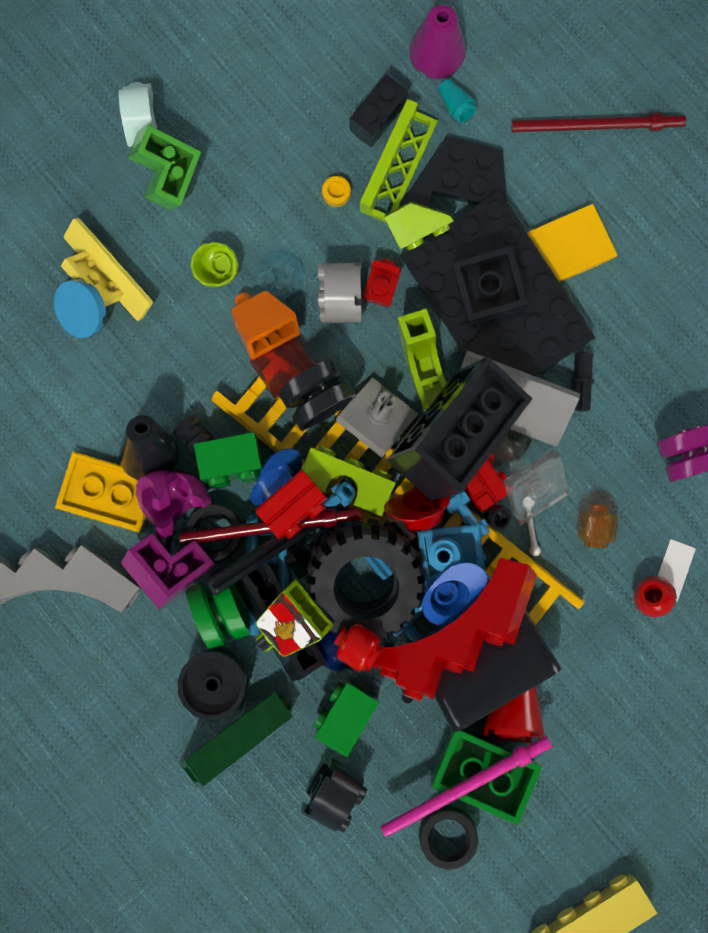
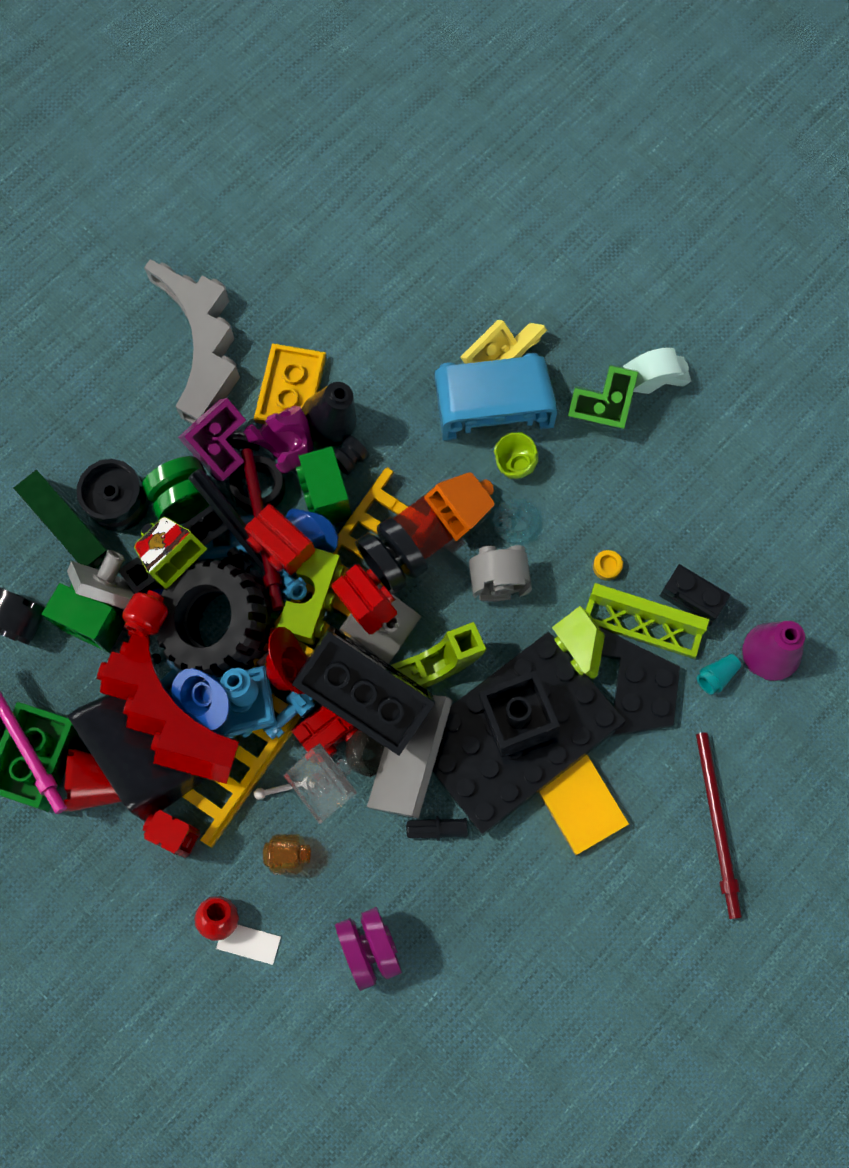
camera: 85 degrees right, 10 degrees down
(79, 308) = (459, 340): dark azure tile -> none
(145, 279) = (494, 394): none -> dark azure windscreen
(315, 695) = (102, 583): none -> light grey tile
(361, 424) = (364, 599): none -> red brick
(382, 282) = (518, 617): red bracket -> none
(500, 511) = (284, 756): black hinge -> none
(574, 635) = (170, 833): none -> red brick

